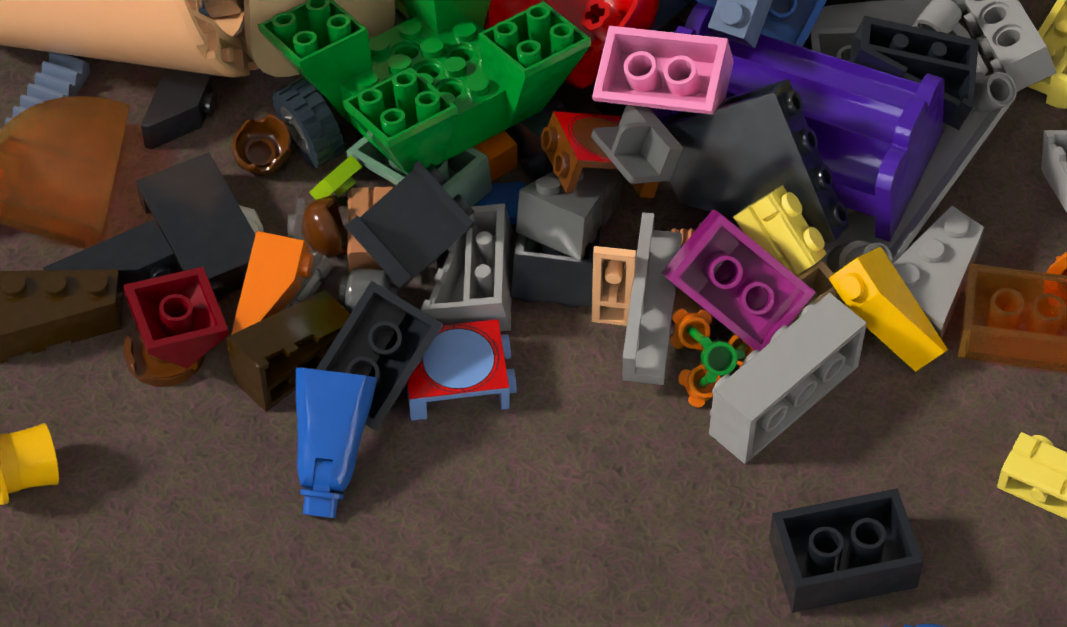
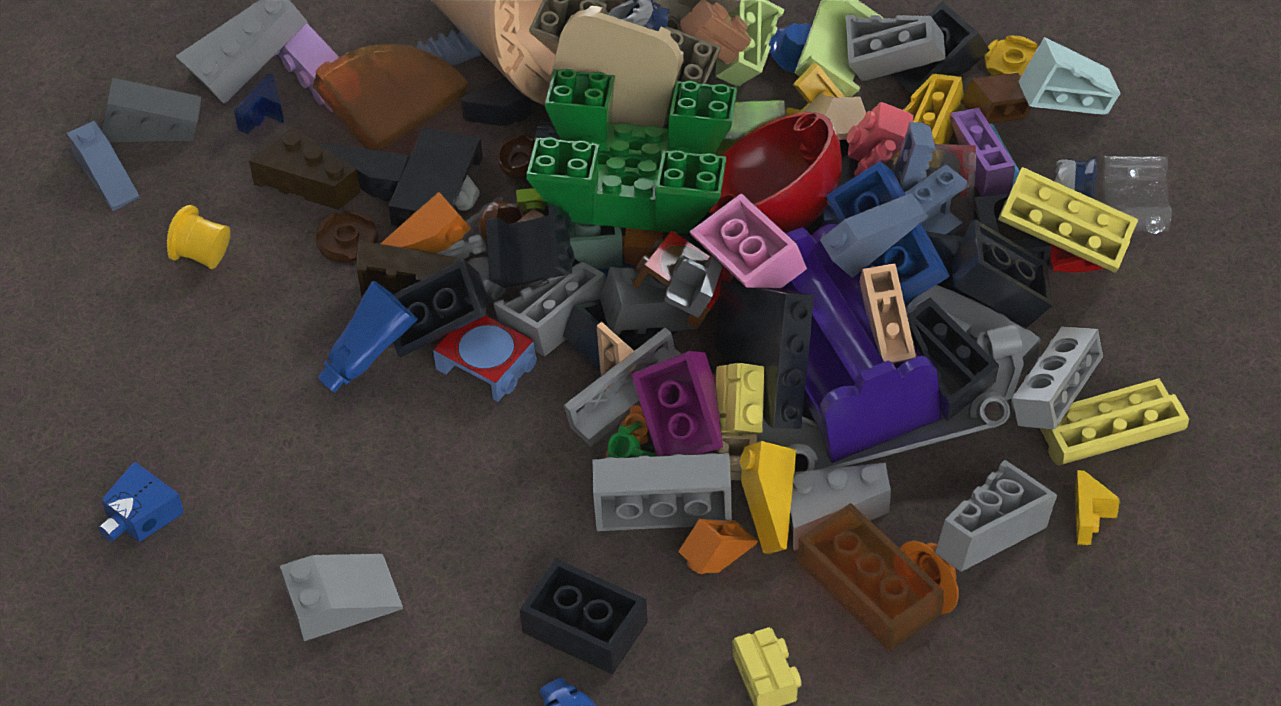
camera: 45 degrees right, 5 degrees down
(177, 315) = (354, 213): dark red slope -> none
(840, 56) = (887, 313): none -> light nougat slope
(879, 396) = (715, 545): none -> orange slope

